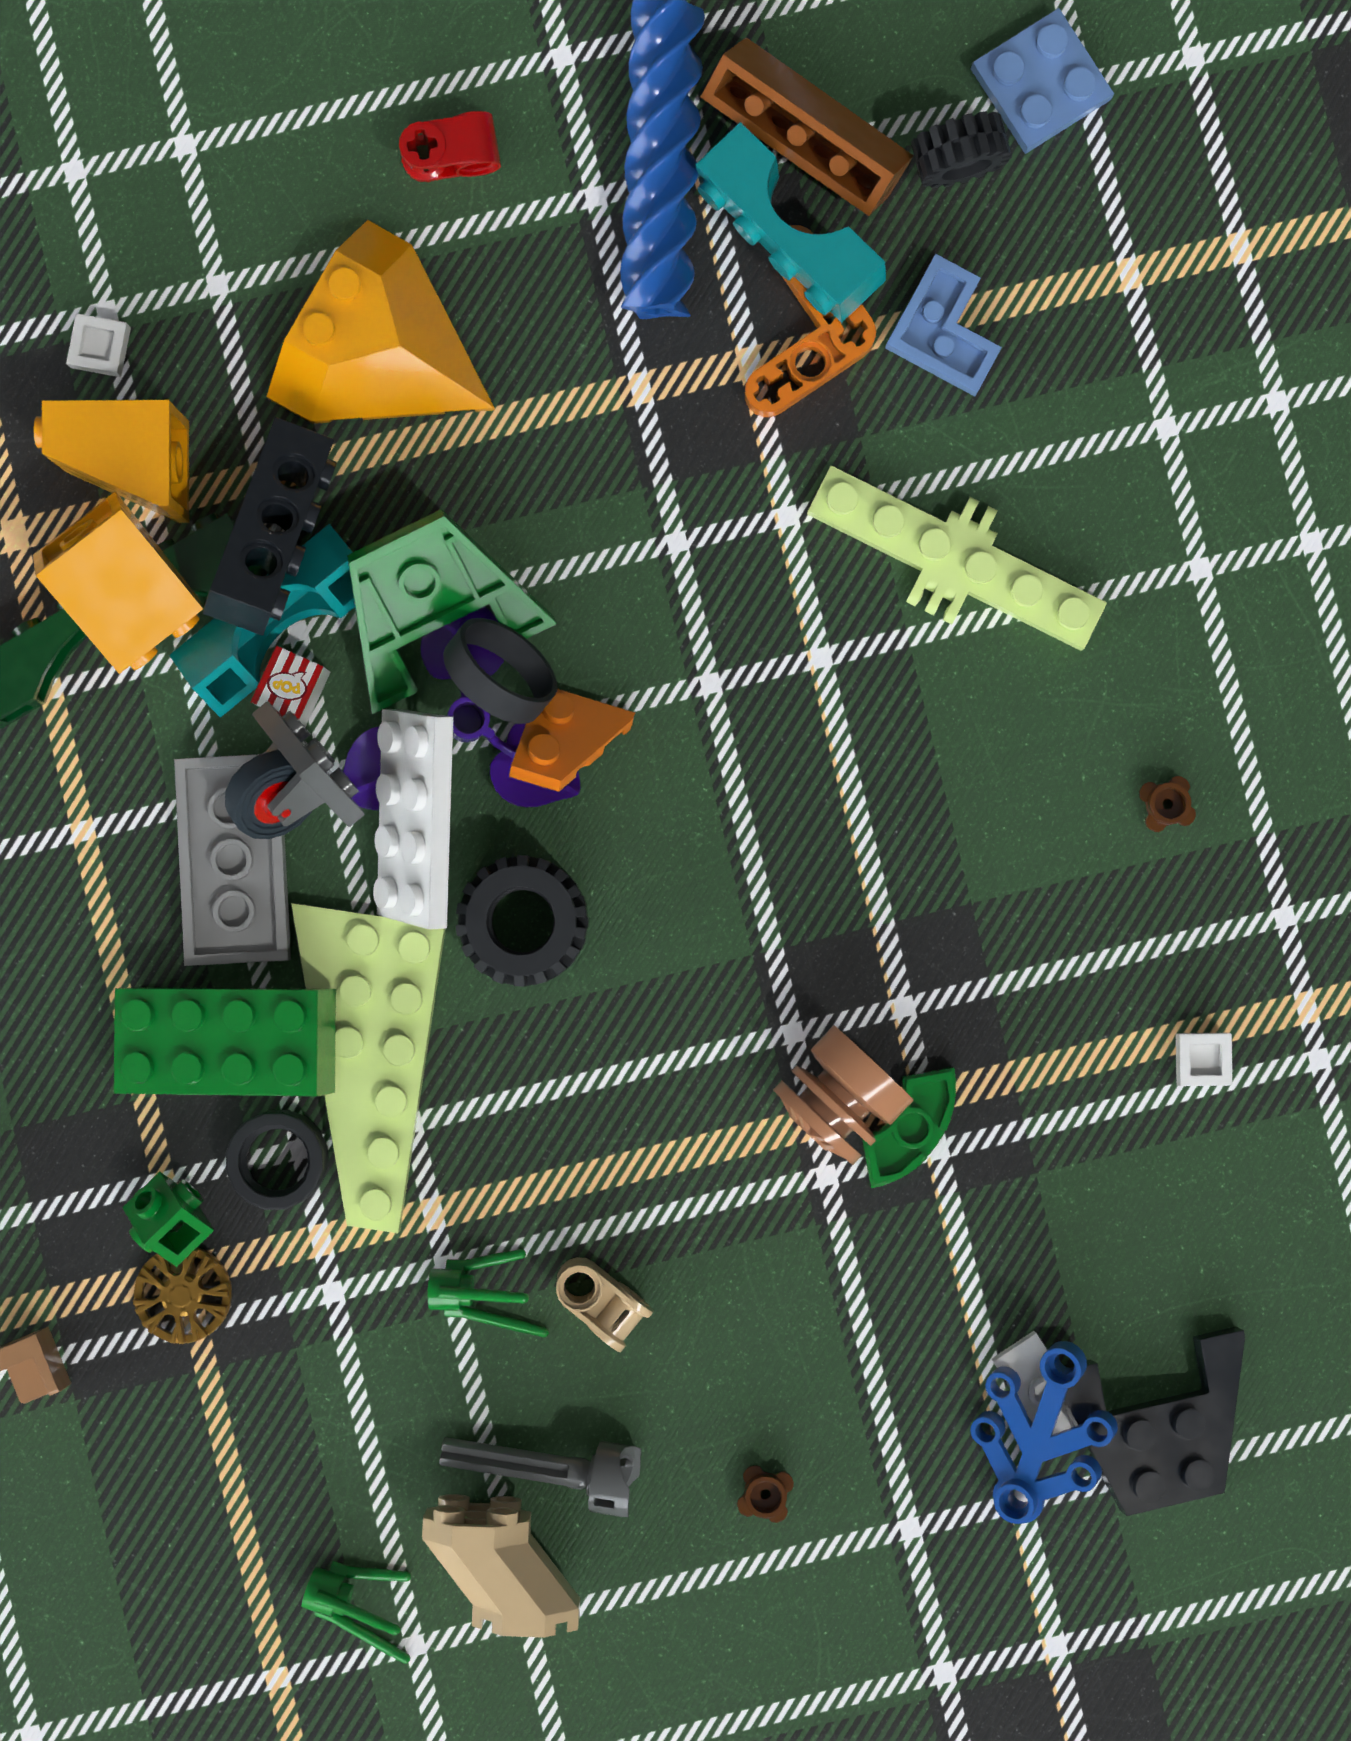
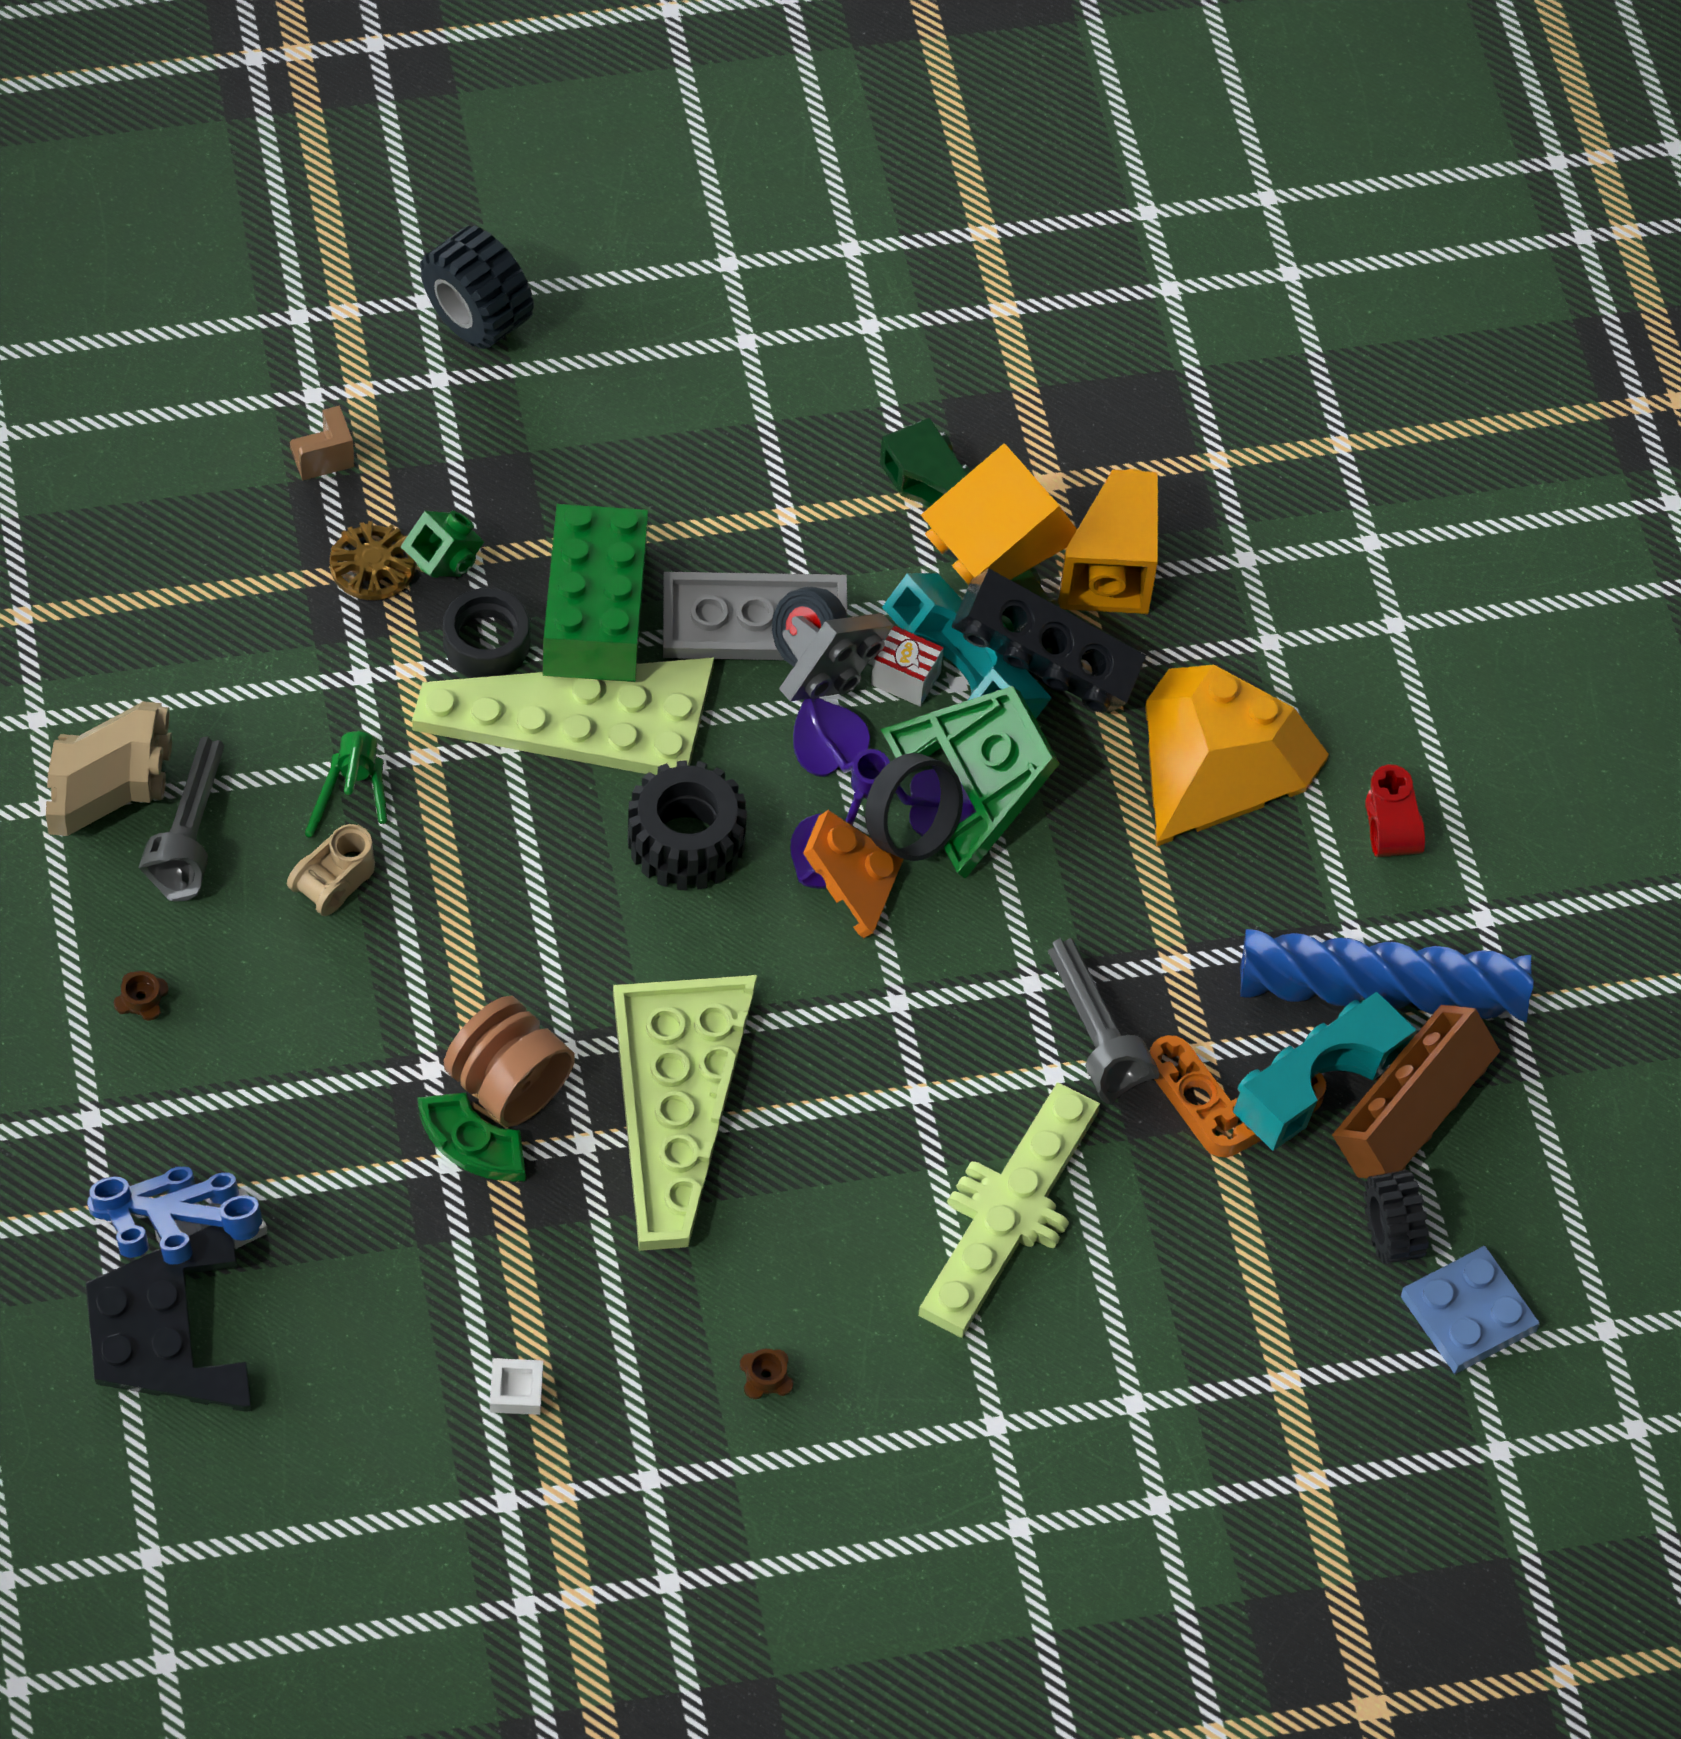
camera: 85 degrees right, 30 degrees down
(98, 345) = (1213, 544): white plate -> none
(330, 1597) = (93, 652): green plant -> none
(414, 817) = (801, 734): white plate -> none
(782, 447) = (1117, 1060): none -> dark grey piece
(822, 915) = (676, 1074): none -> yellowish green wing
(930, 330) = (1226, 1194): medium blue plate -> none

